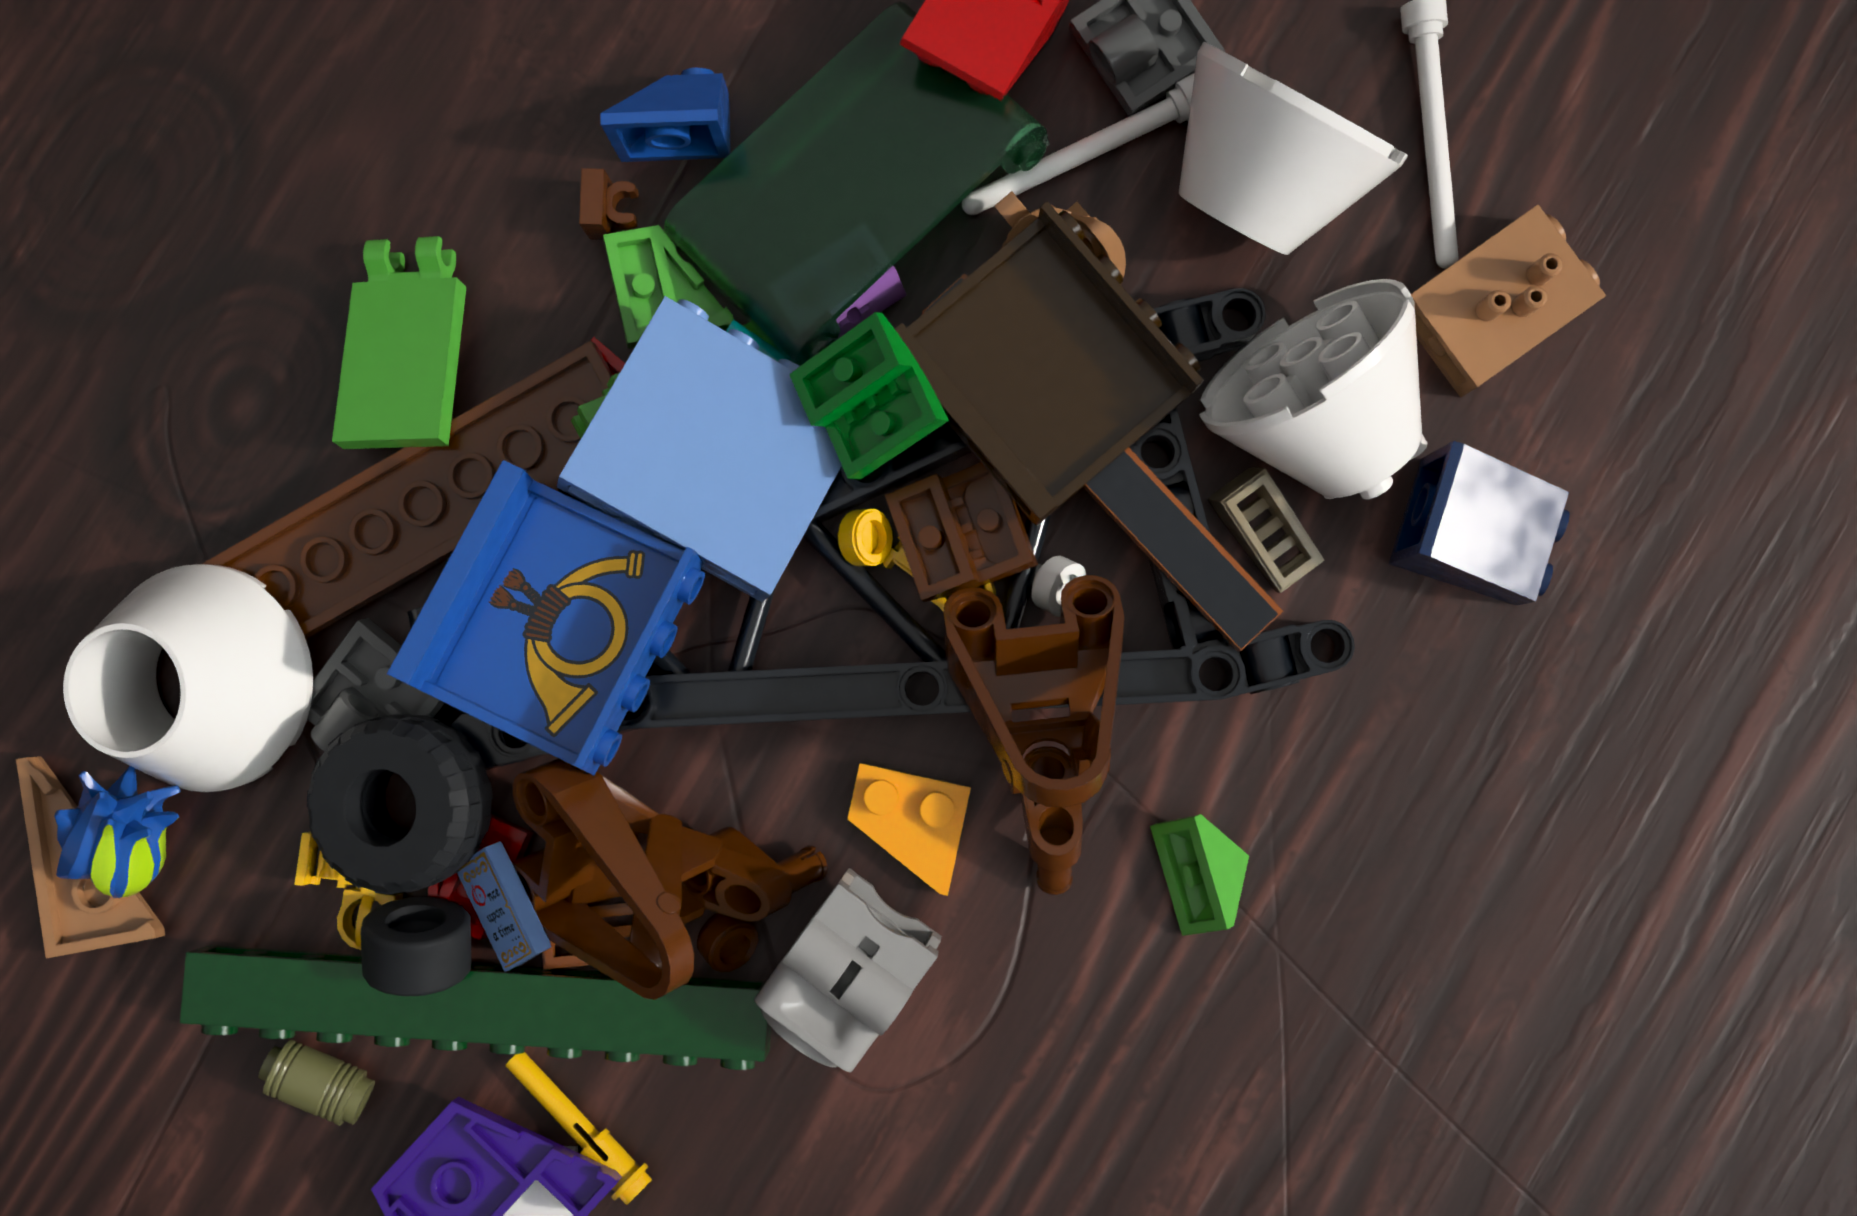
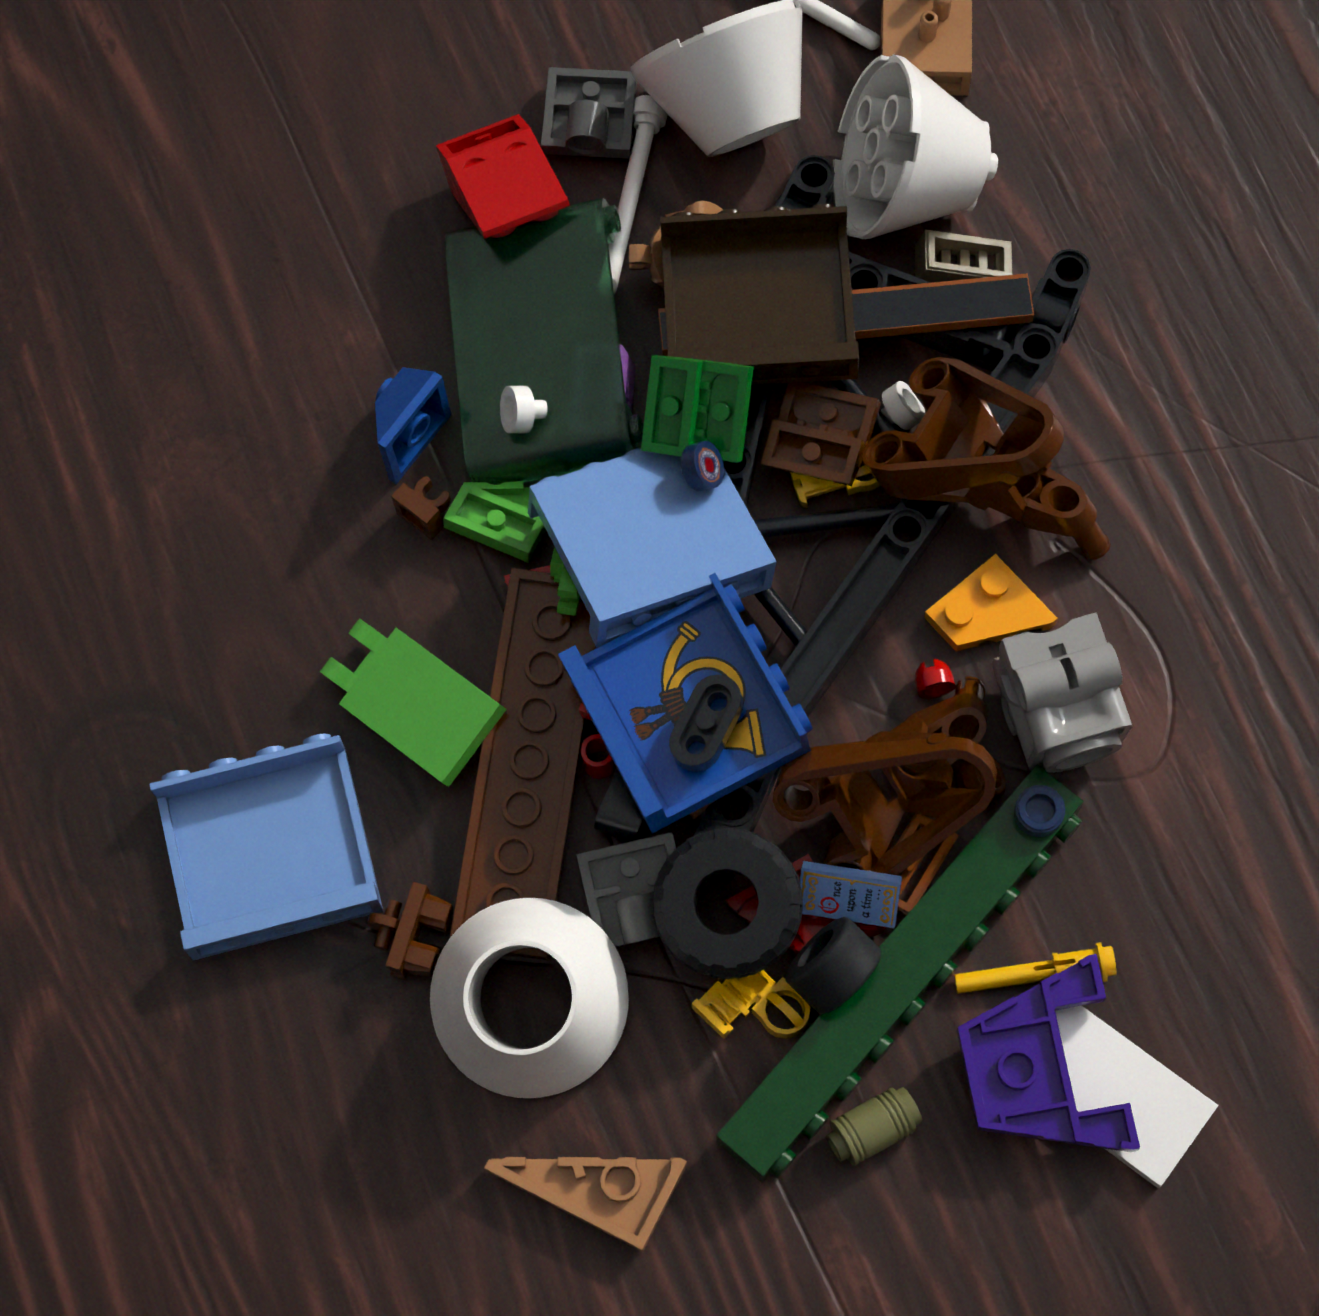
camera: 50 degrees left, 15 degrees down
(115, 835) = (594, 1124): blue hair -> none
(164, 532) = (406, 952): none -> reddish brown hips
(172, 329) = (266, 846): none -> medium blue panel
(539, 656) = (705, 725): none -> black plate
(717, 1029) = (1039, 811): none -> dark blue tile
(746, 223) = (520, 409): none -> white tile
(792, 822) = (934, 680): none -> red hinge
(812, 448) = (702, 466): none -> dark blue tile
(865, 537) = (778, 496): yellow tile -> none
(1201, 873) = (1160, 455): bright green slope -> none
(1481, 525) = (1059, 134): slope -> none

